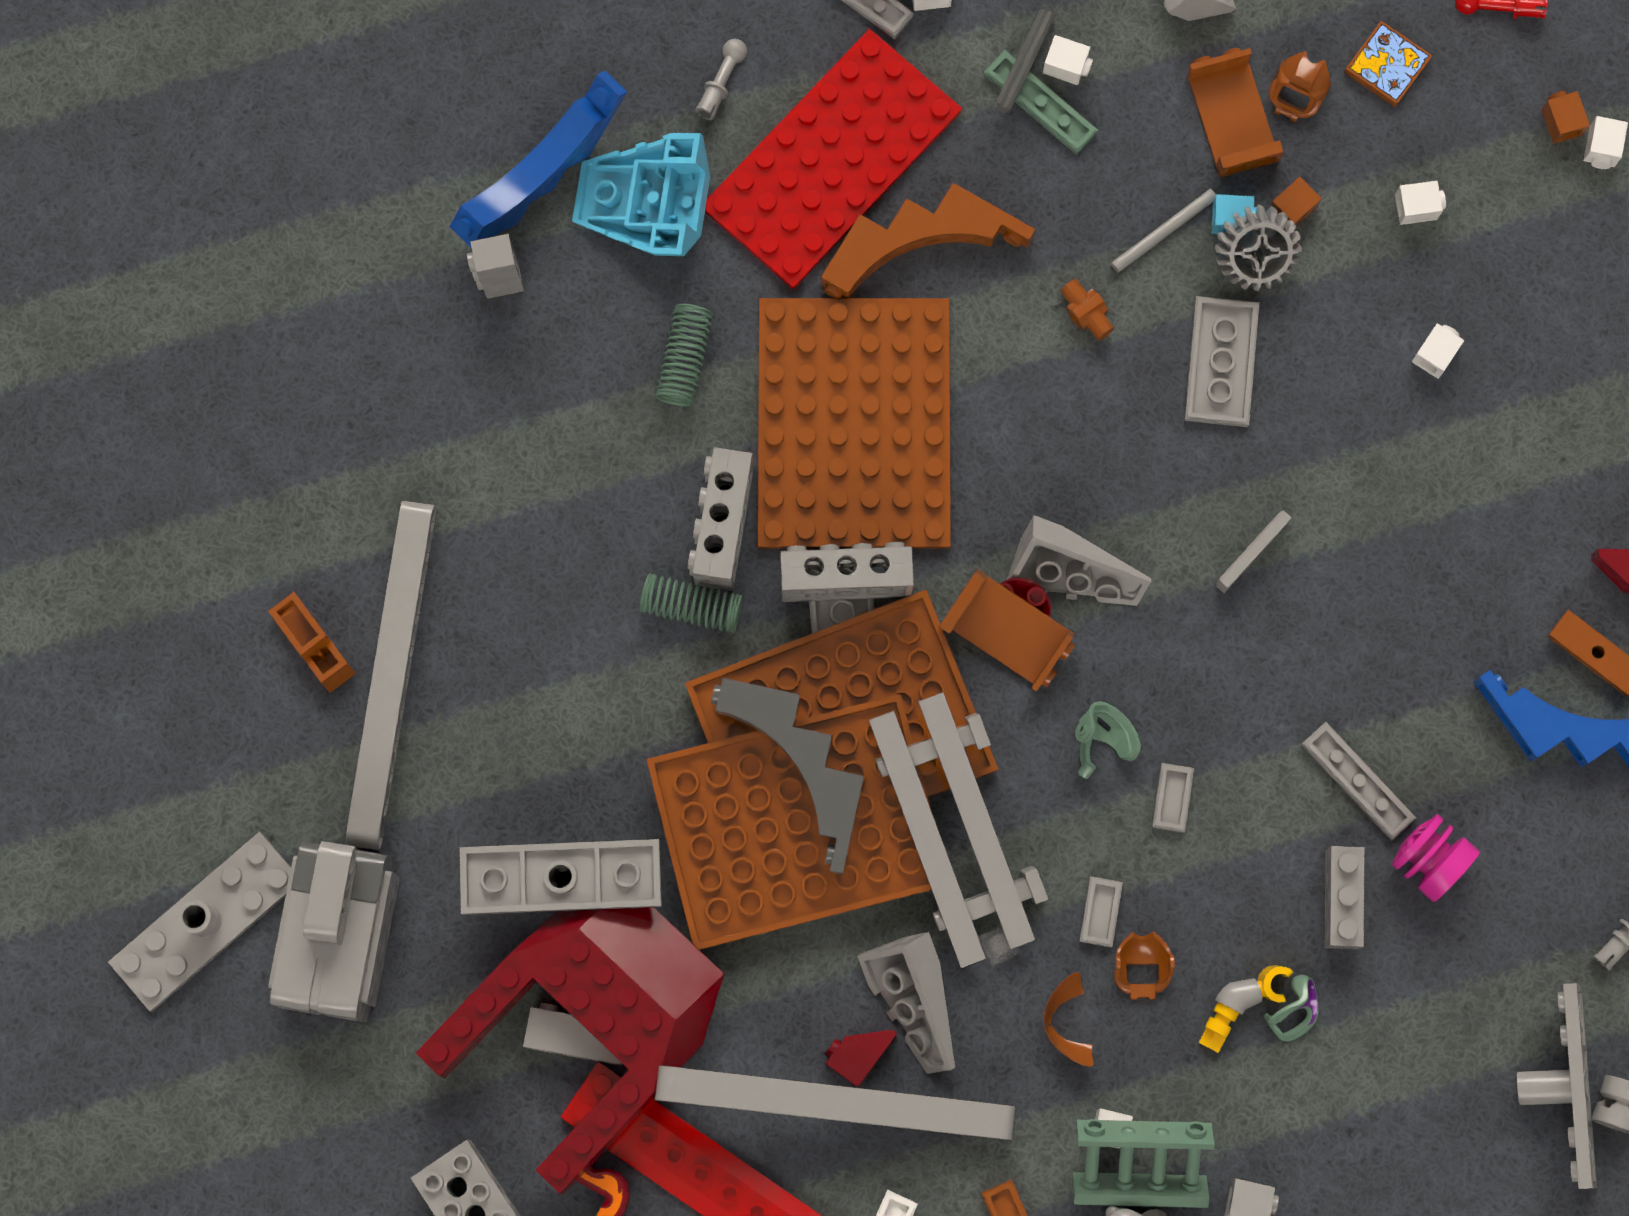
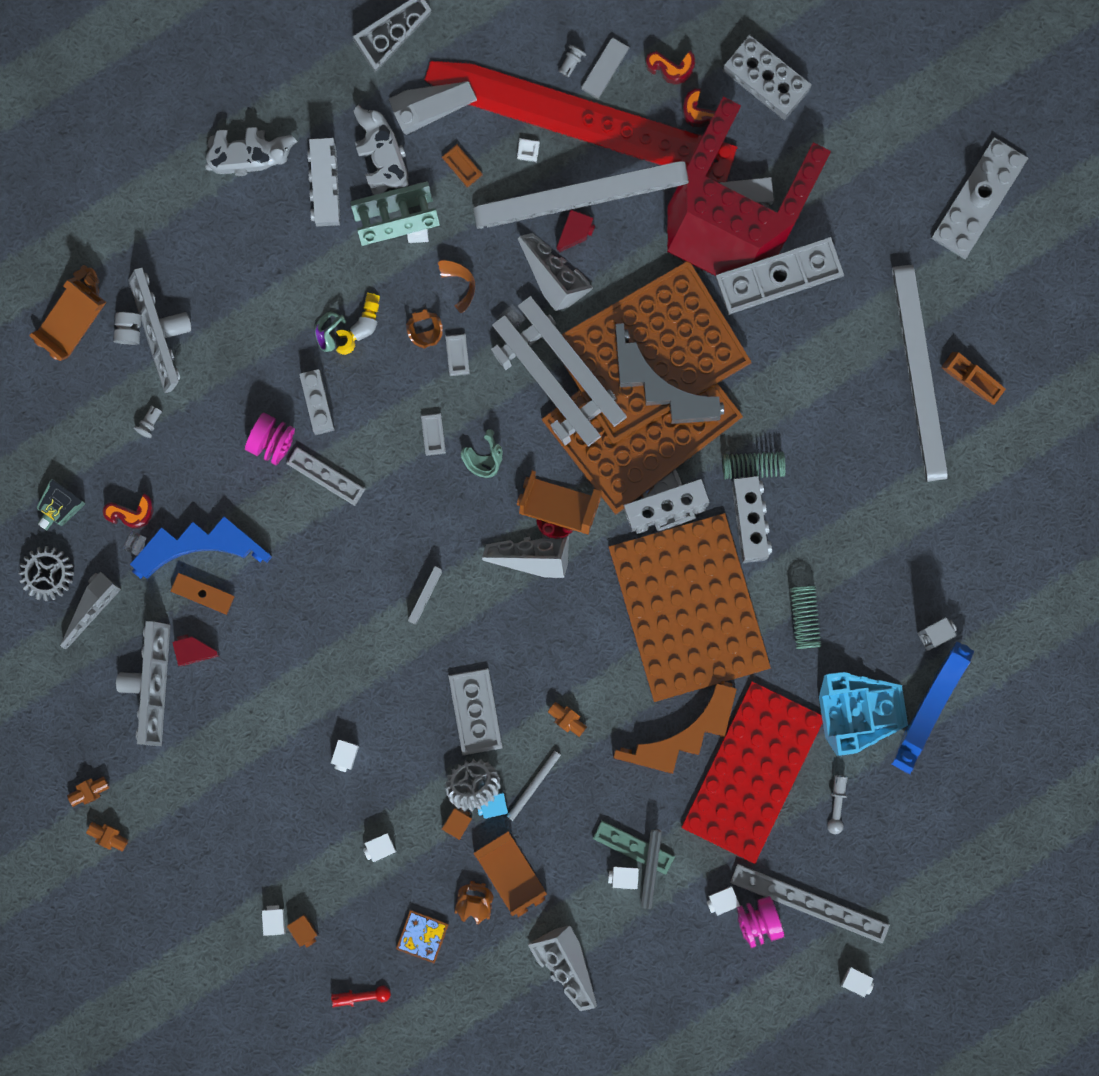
camera: 160 degrees right, 5 degrees up
(334, 931) = (901, 208): light grey piece -> none

